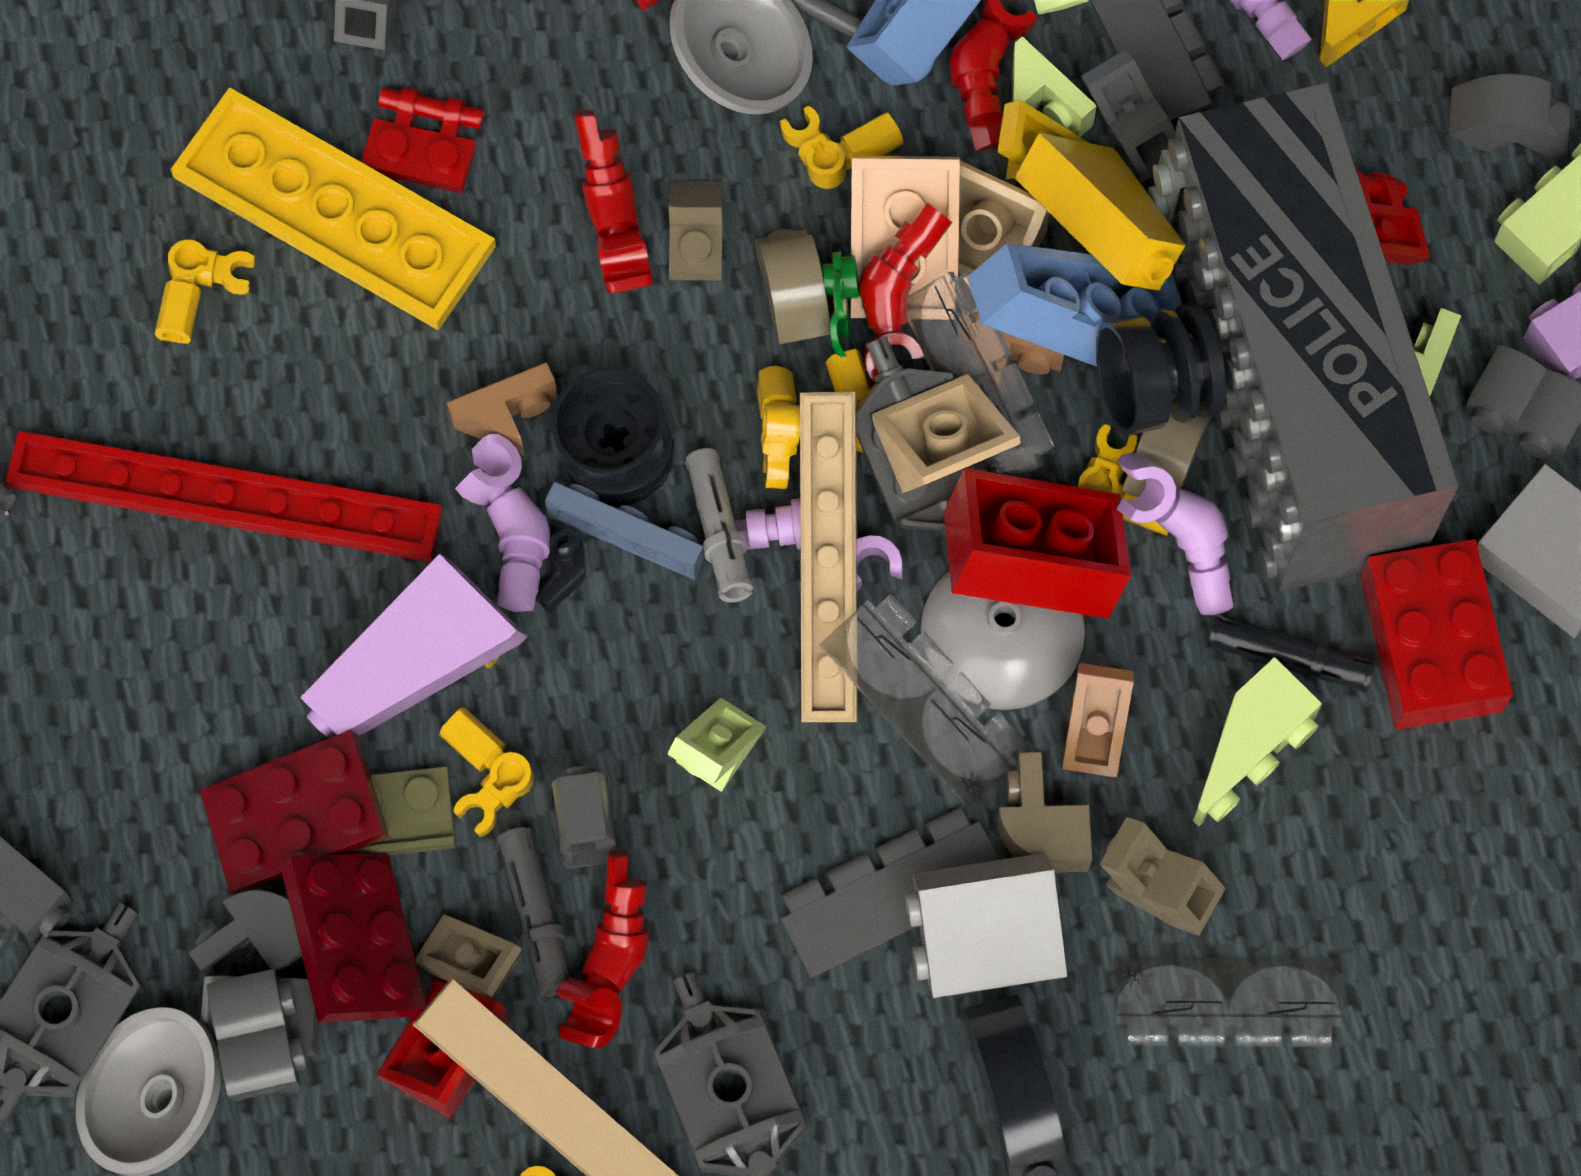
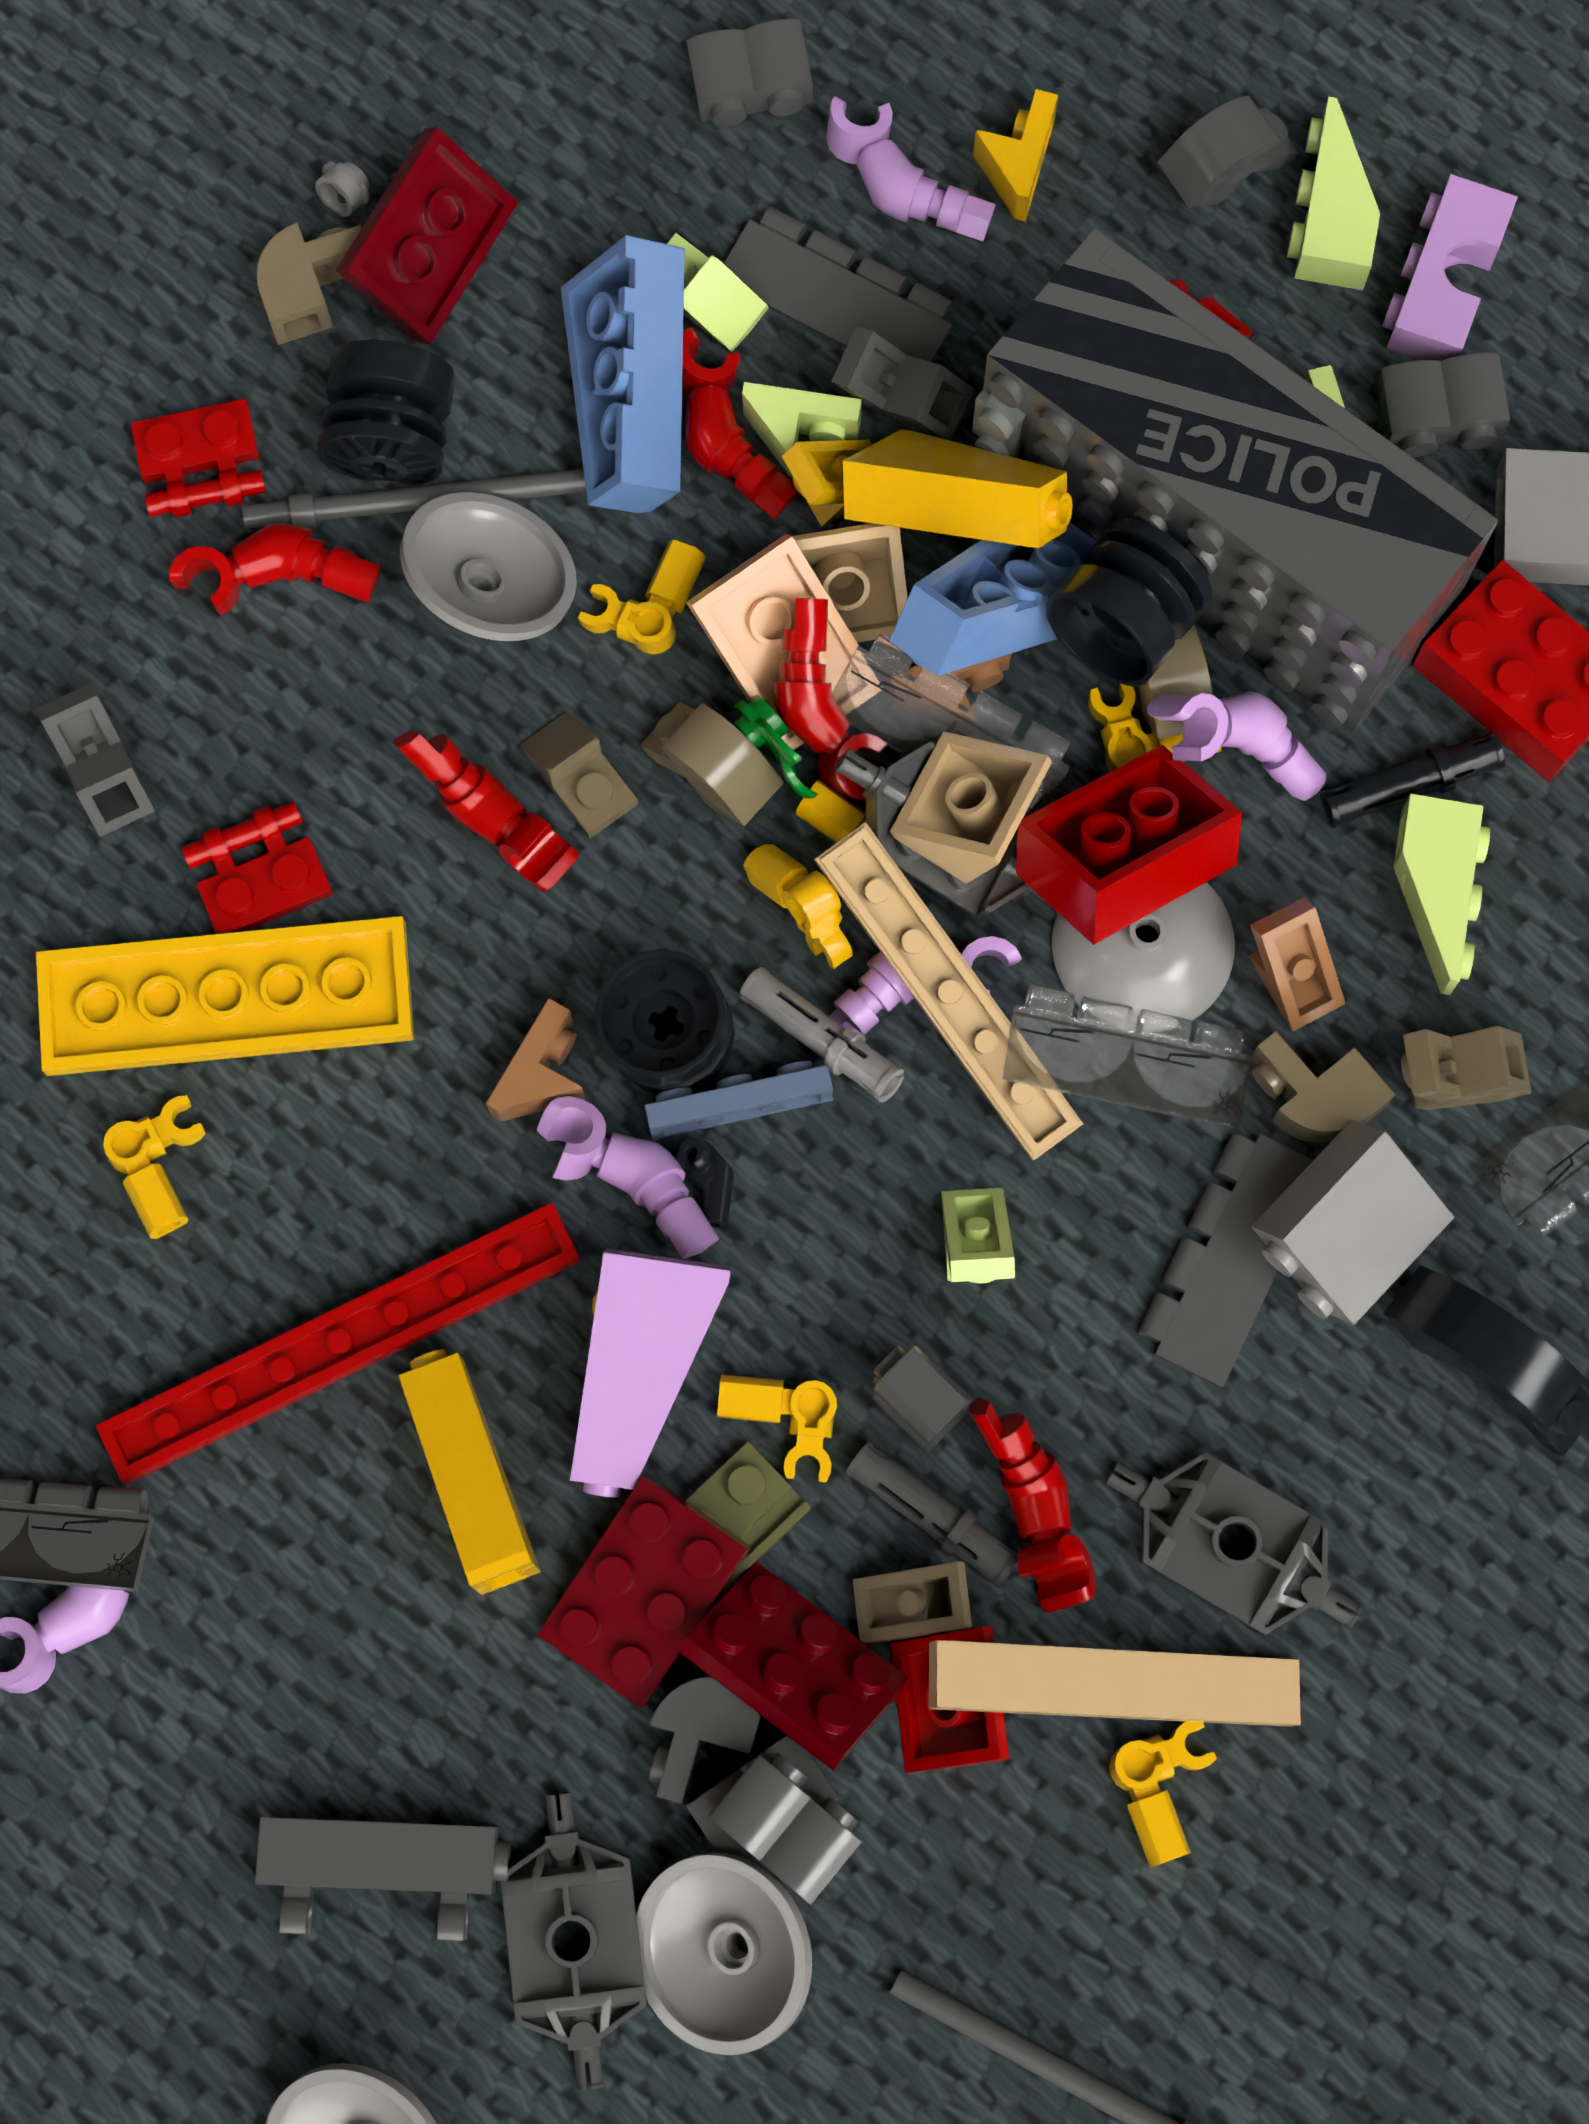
camera: 35 degrees left, 5 degrees up
(236, 646) = (467, 1473): none -> yellow slope

